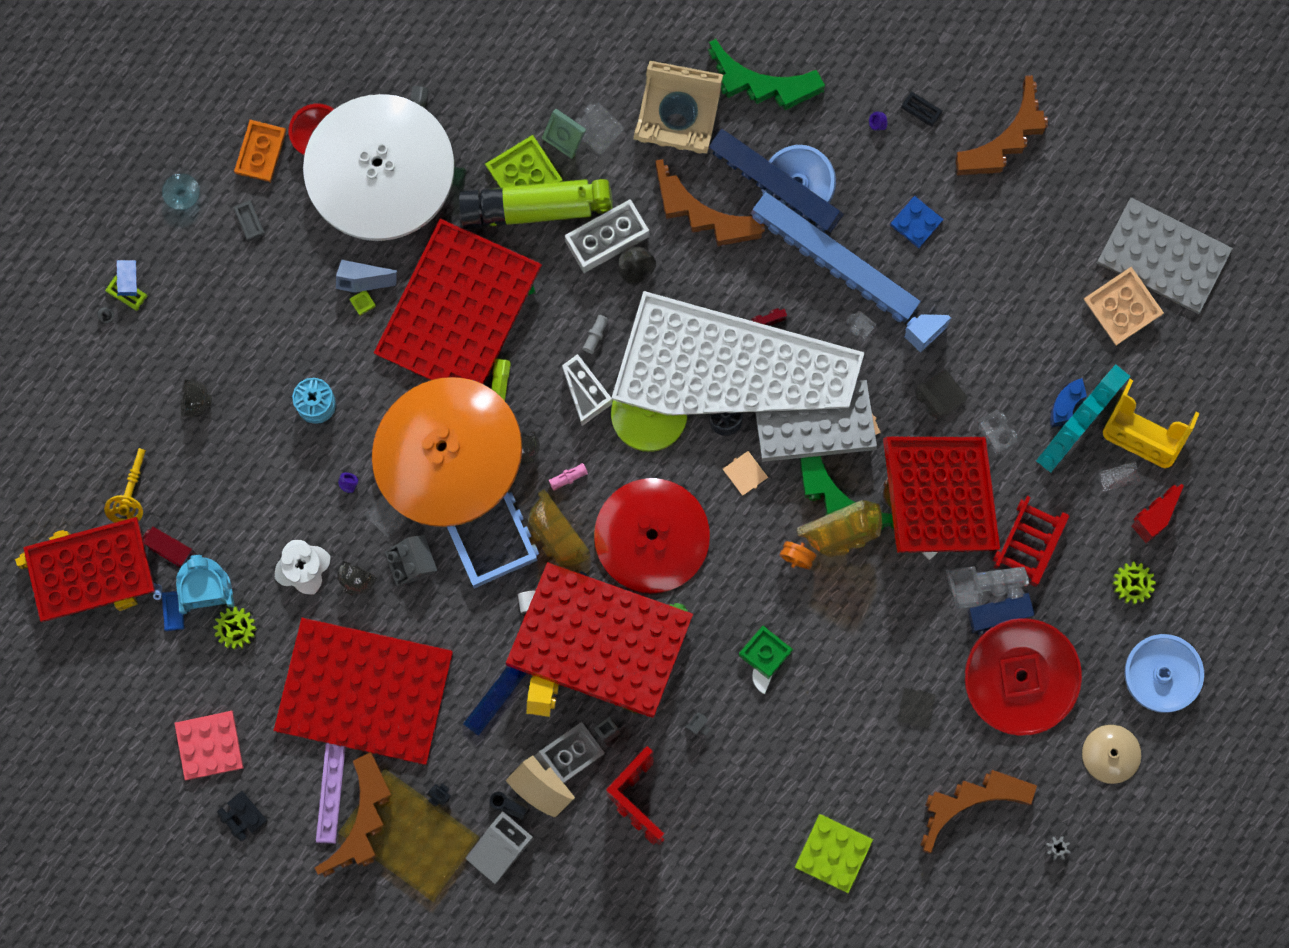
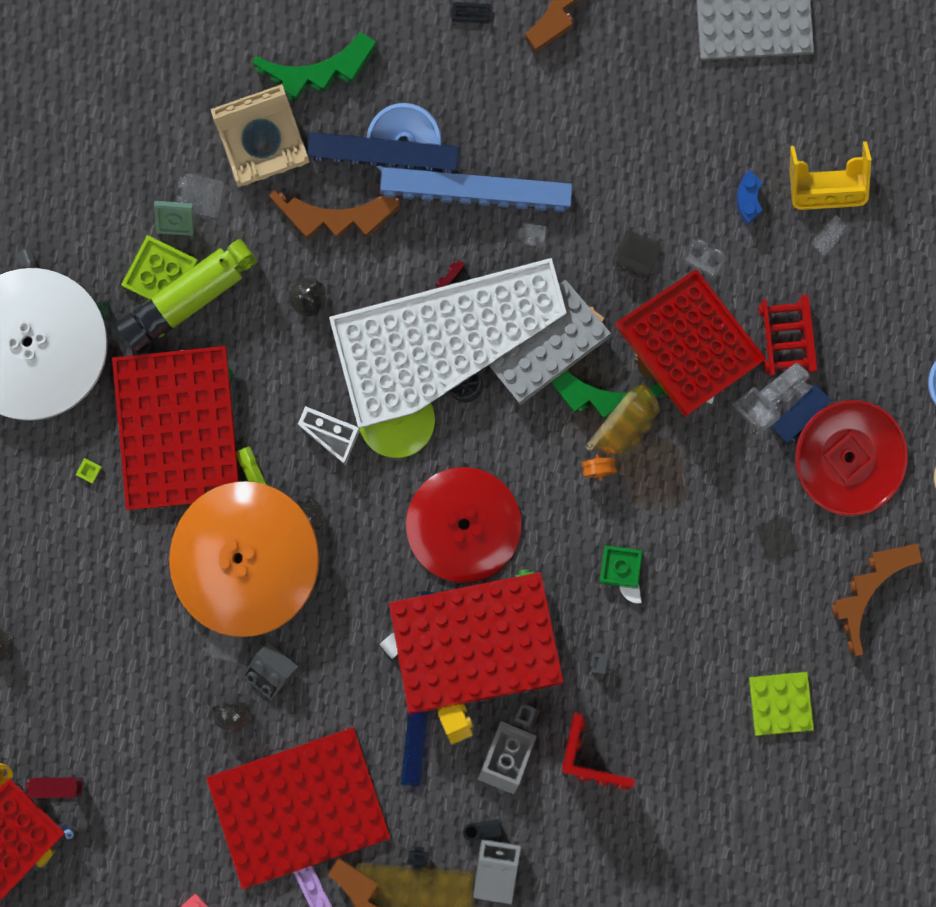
camera: 25 degrees left, 5 degrees up
(172, 617) = (90, 838): blue tile -> none
(202, 584) = (103, 800): medium azure animal -> none
(238, 620) = (152, 811): lime gear -> none
(305, 580) = (192, 738): white brick -> none
(310, 410) = (103, 593): medium azure wheel -> none
(348, 482) = (173, 635): dark purple tile -> none
(363, 277) = (73, 450): sand blue slope -> none
(492, 575) = (354, 589): light blue window -> none
(540, 787) = (501, 799): tan slope -> none
(556, 533) = (380, 572): clear yellow windscreen -> none
(568, 477) = (360, 517): bright pink pin -> none
(595, 334) = (308, 378): light grey pin -> none
(607, 236) = (266, 286): white brick -> none
(745, 473) = (510, 422): light nougat piece -> none
(878, 121) = (439, 45): dark purple tile -> none
(916, 222) = (525, 115): blue plate -> none
(925, 329) = (589, 207): light blue slope -> none
(1083, 418) = (771, 203): teal arch -> none
(1123, 306) = (746, 85): light nougat plate -> none
(1139, 588) = (904, 322): lime gear -> none
(1153, 521) = (884, 251): red slope -> none

